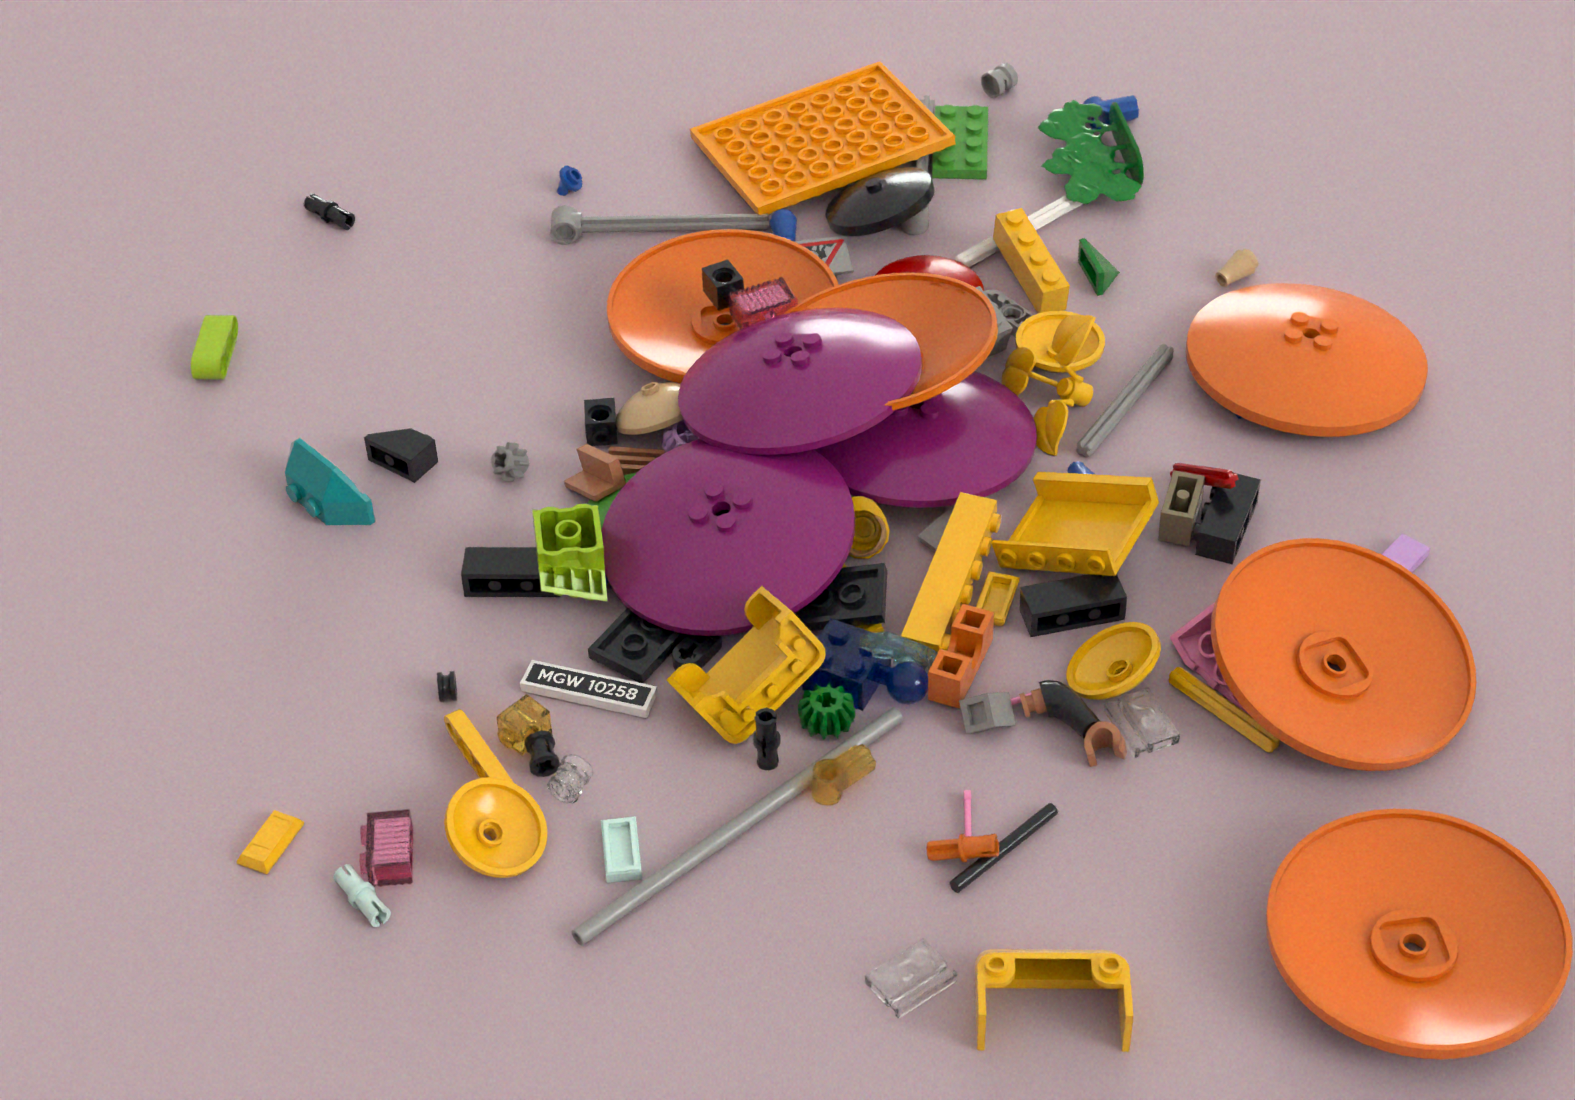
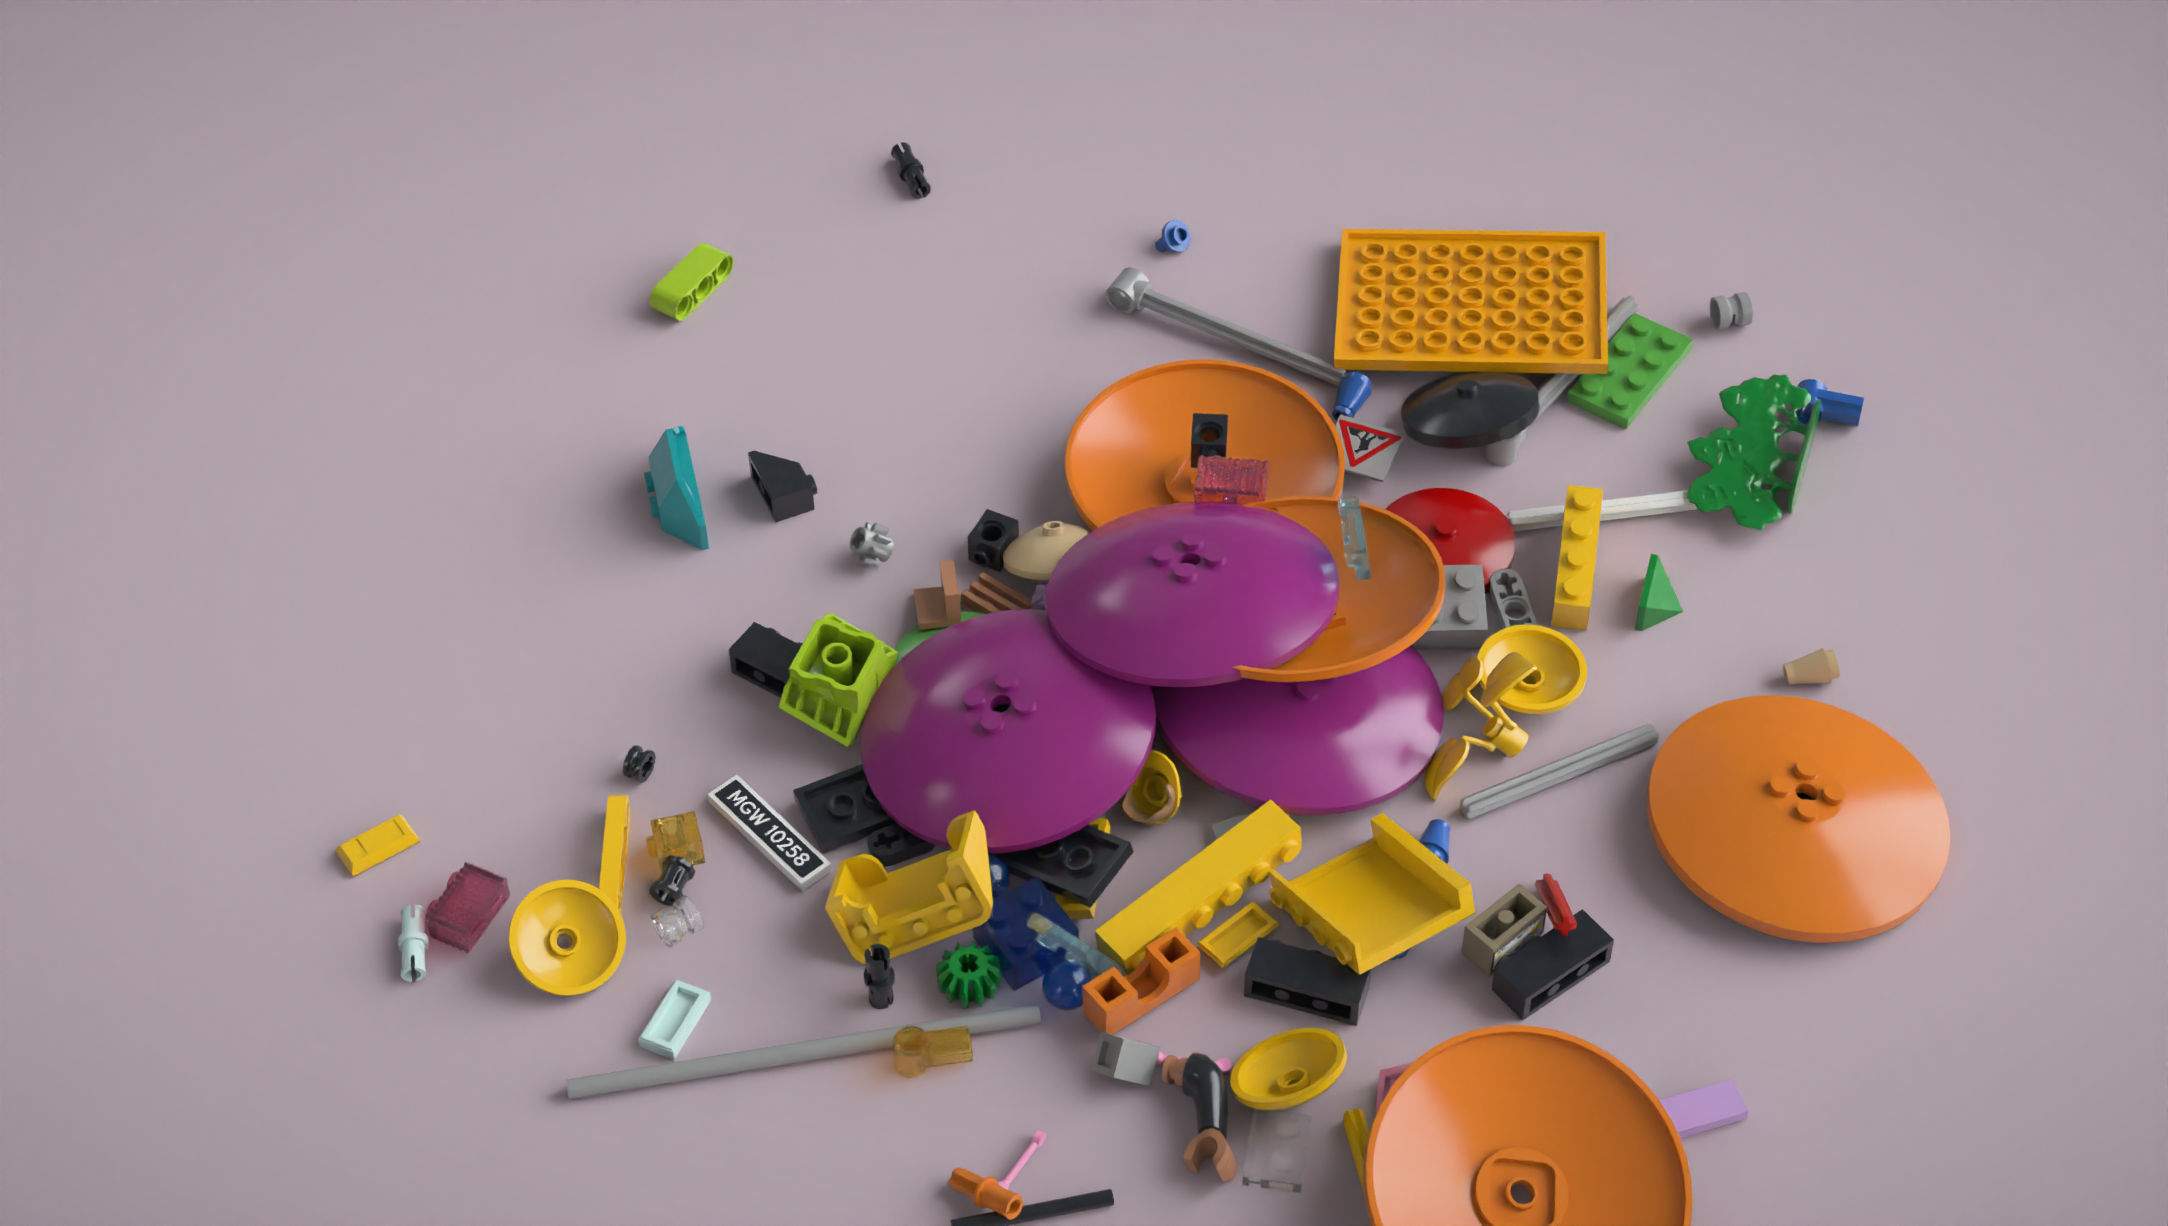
camera: 30 degrees right, 5 degrees up
(896, 291) = (1354, 536): none -> clear light blue hinge

